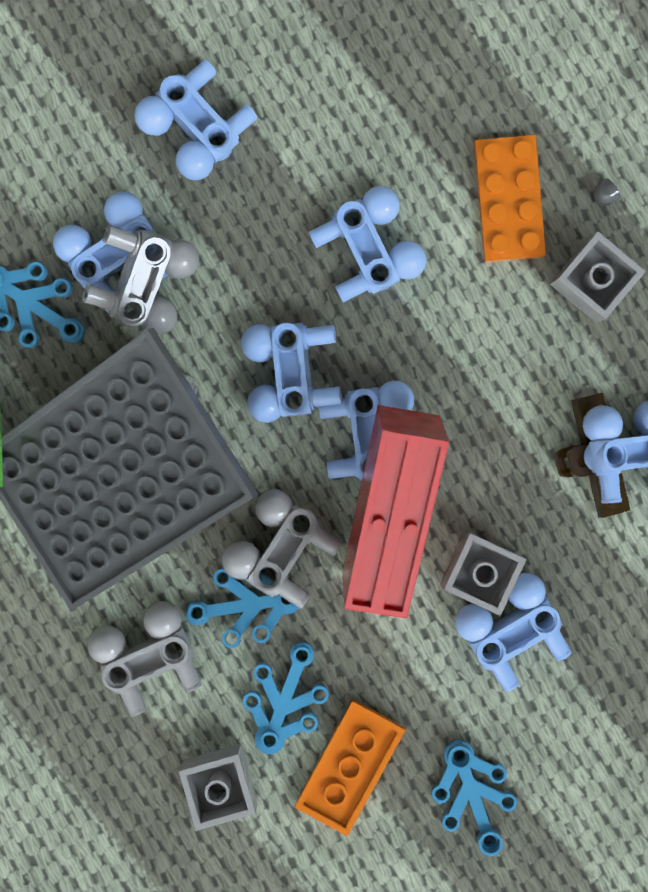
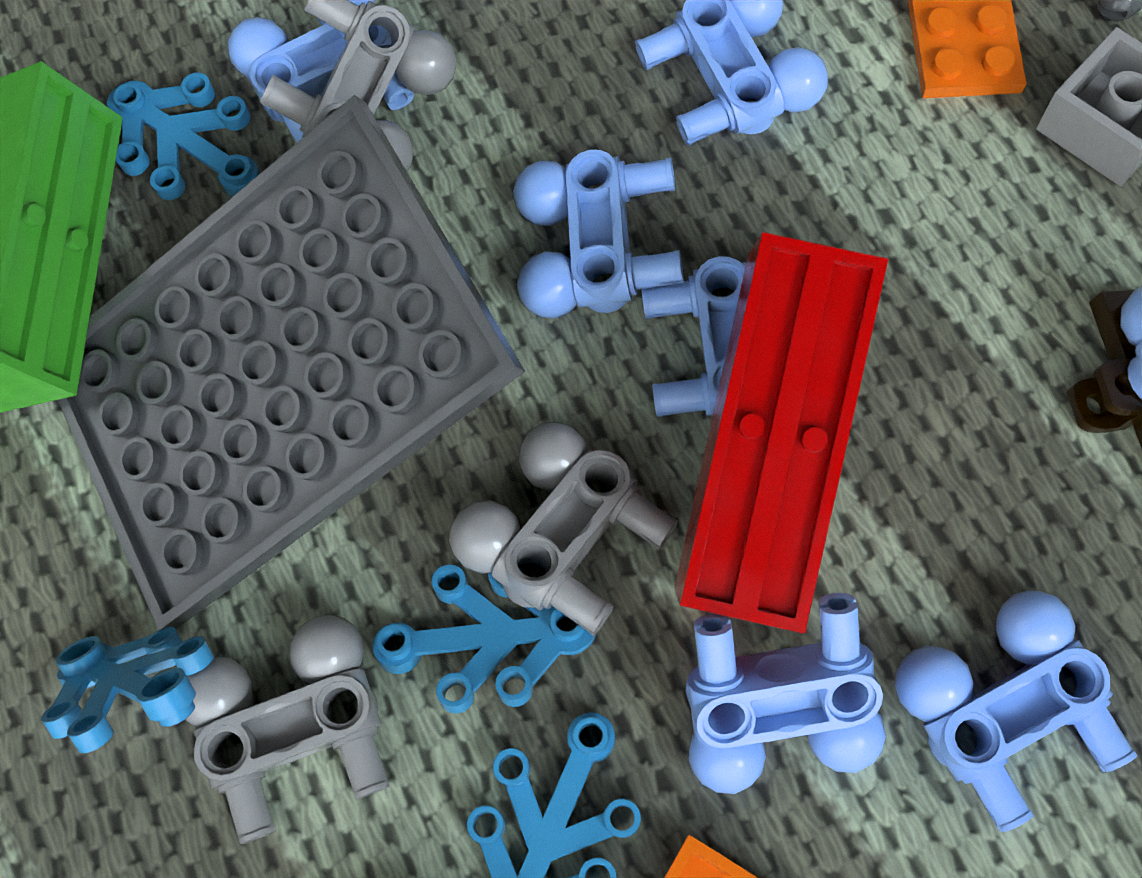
camera: 15 degrees right, 20 degrees down
(37, 630) = (89, 662): none -> dark azure plant
(396, 639) = (783, 694): none -> light blue piece
(482, 572) = (949, 582): light grey brick -> none

